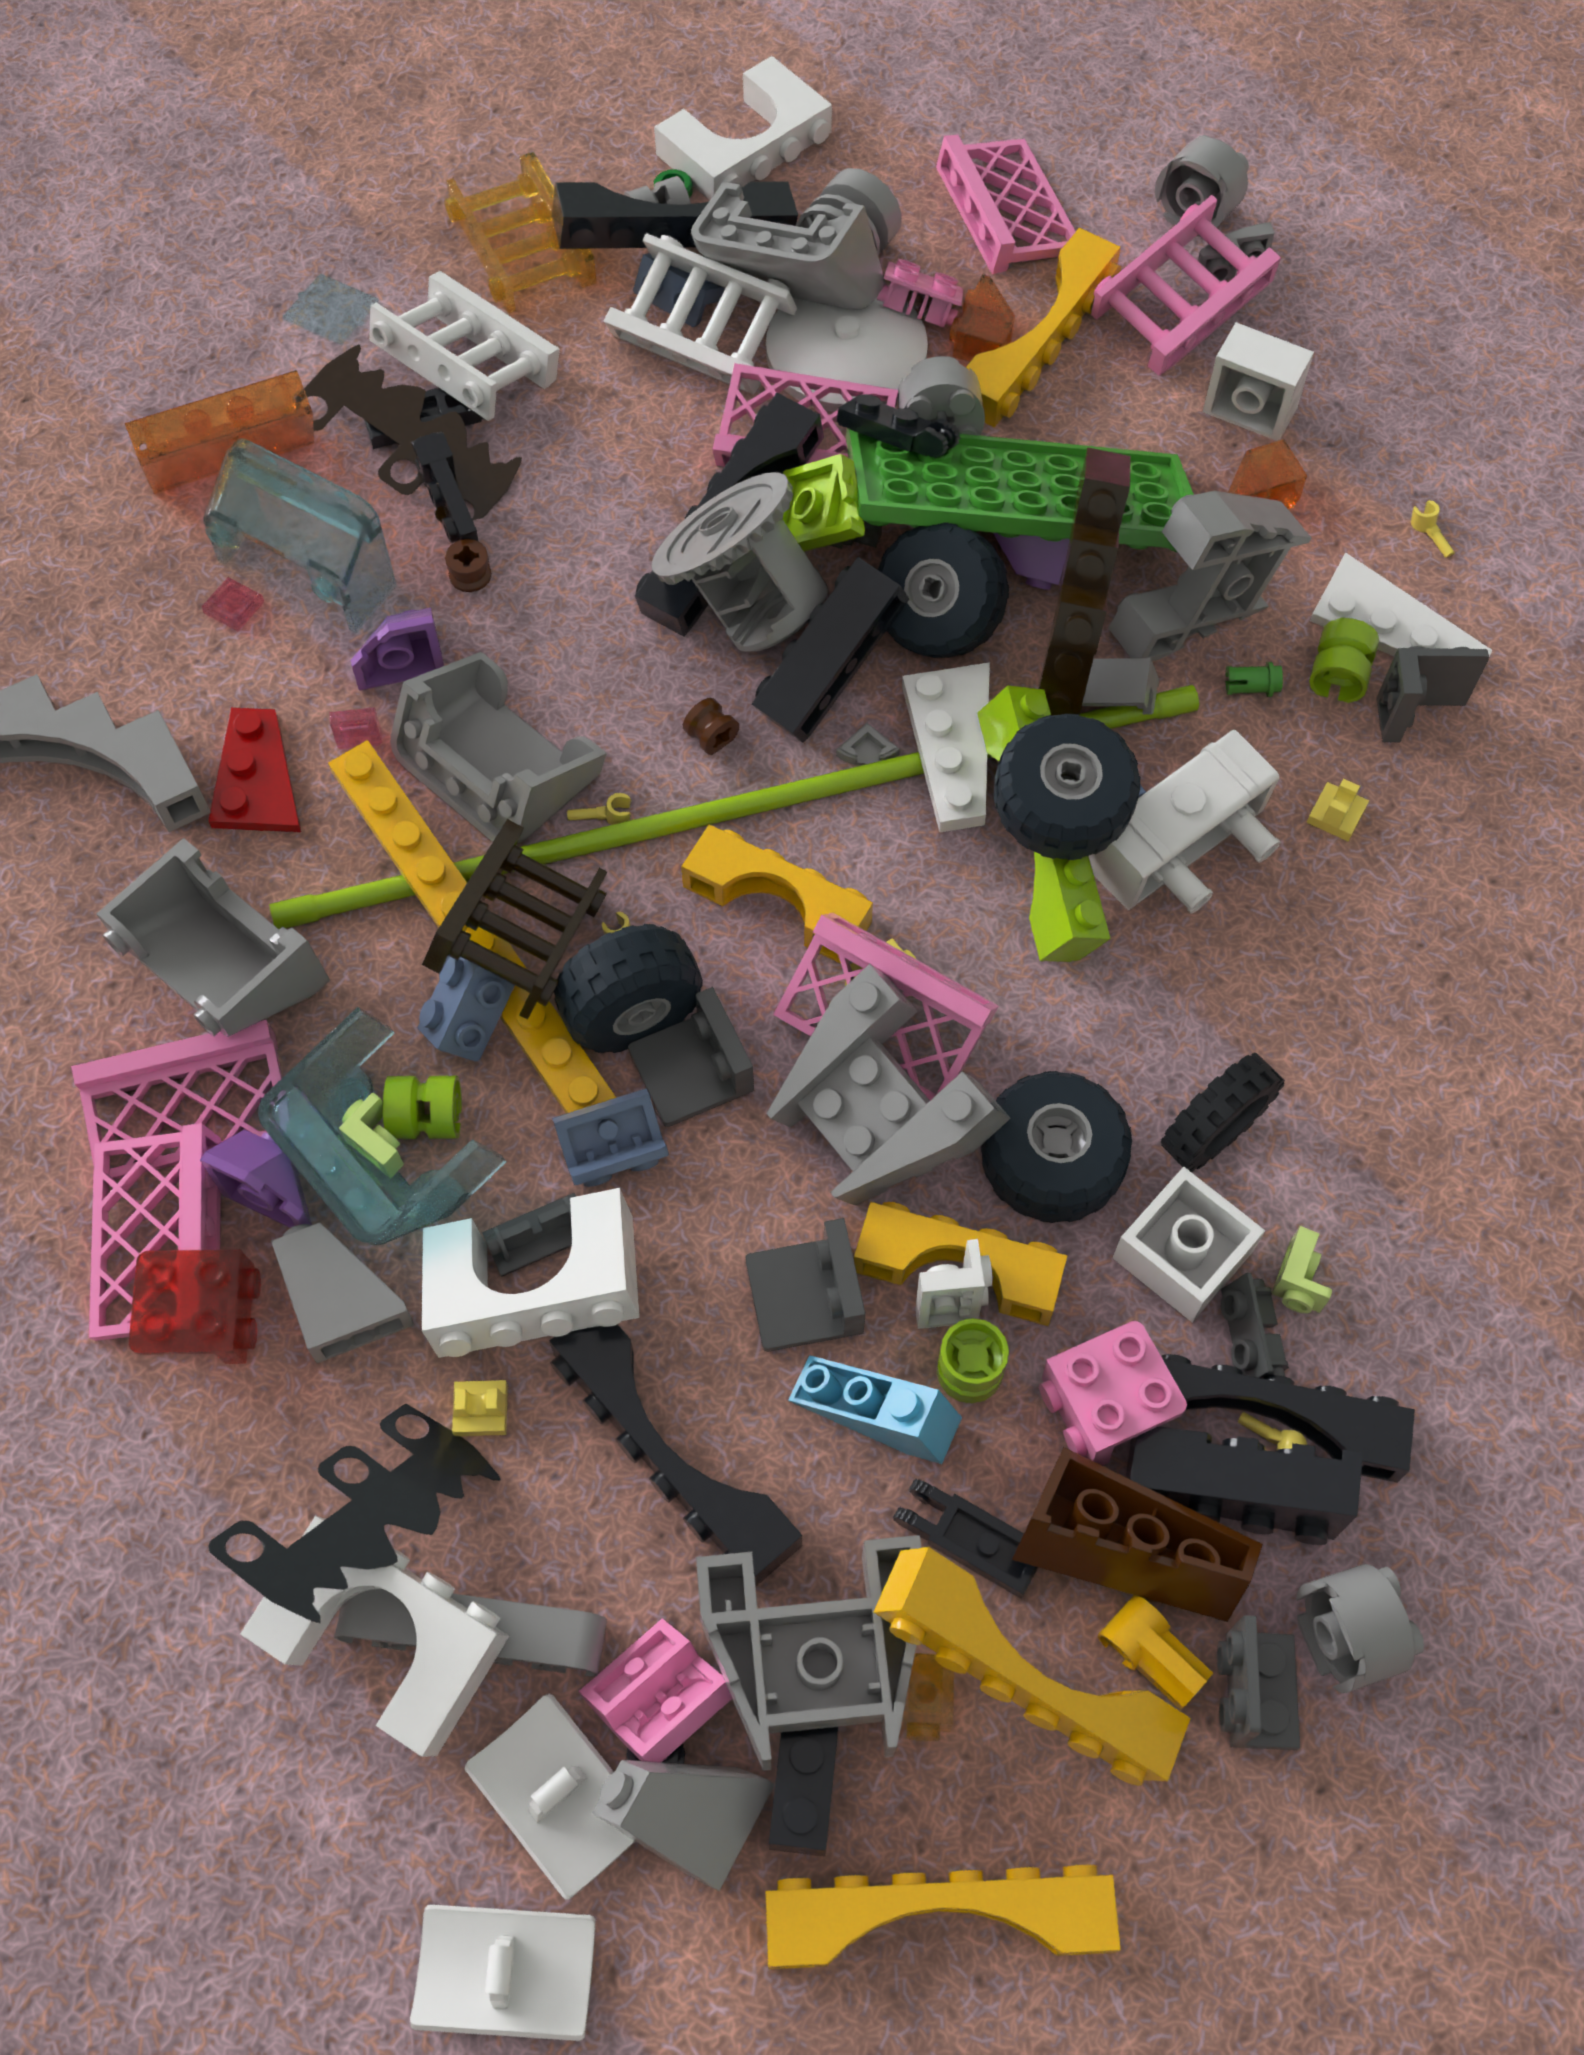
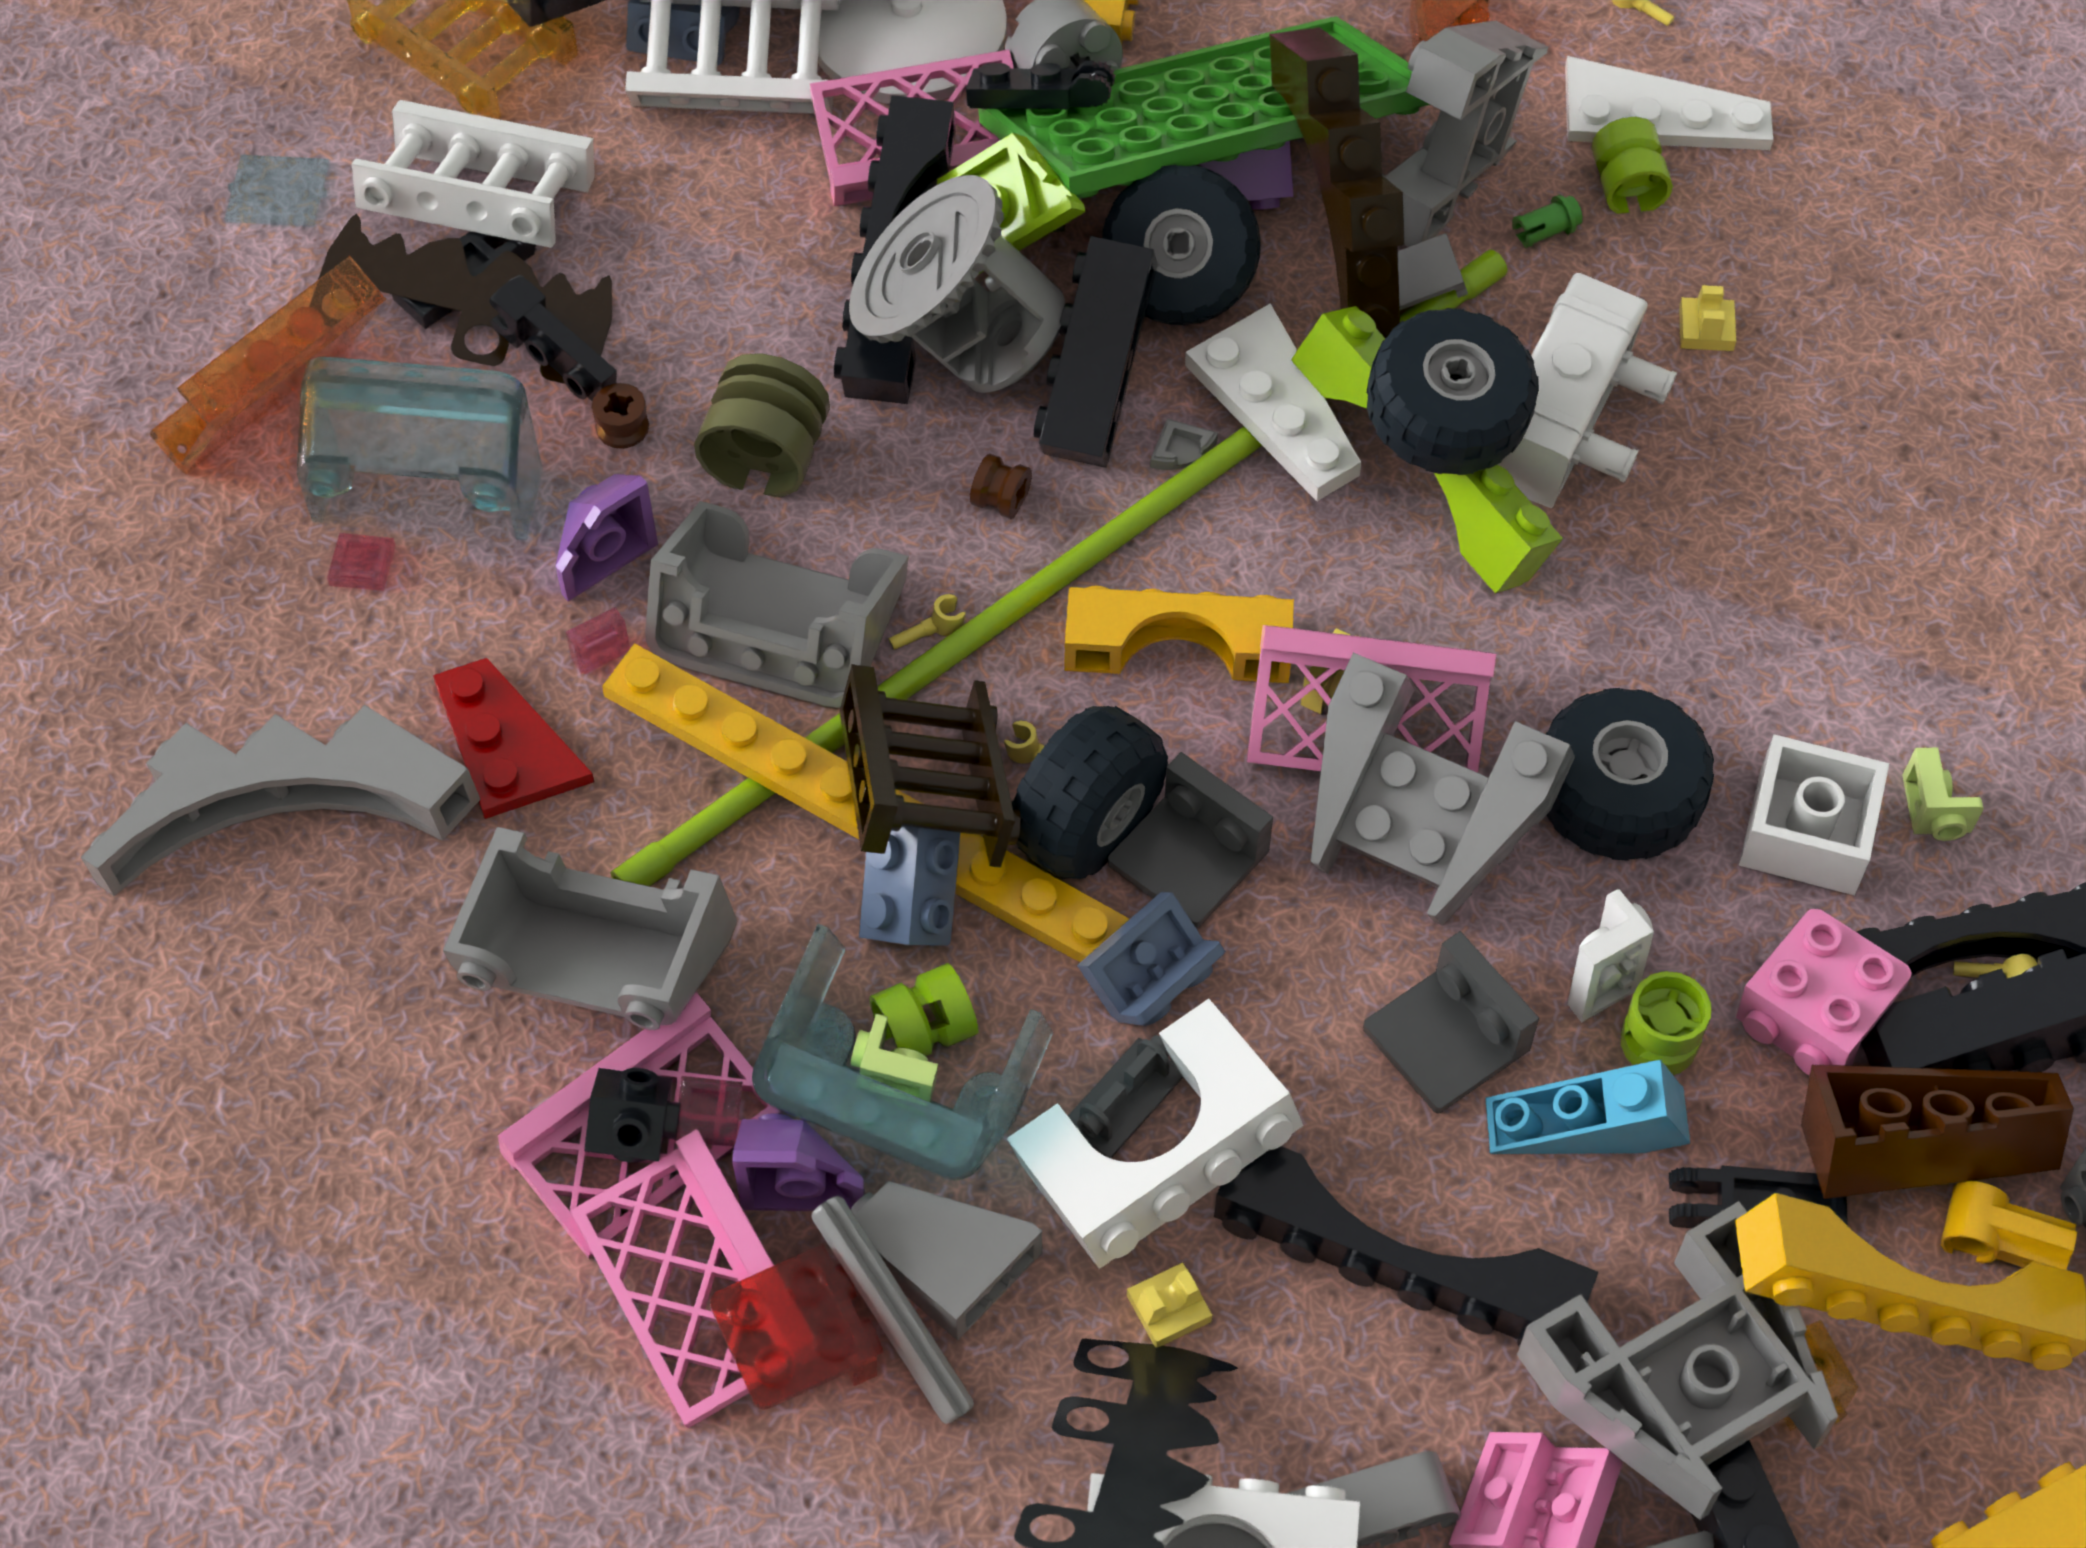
camera: 25 degrees left, 5 degrees down
(165, 1091) = (631, 1114): none -> black brick
(230, 1110) = (711, 1108): none -> clear pink tile
(270, 1320) = (892, 1309): none -> light grey axle
(558, 607) = (764, 421): none -> olive wheel
(901, 1242) = (1524, 933): yellow arch -> none
(1222, 1112) = (1779, 665): black tyre -> none
(1248, 1310) = (1914, 872): dark grey hinge -> none
(1426, 679) = (1726, 154): dark grey bracket -> none

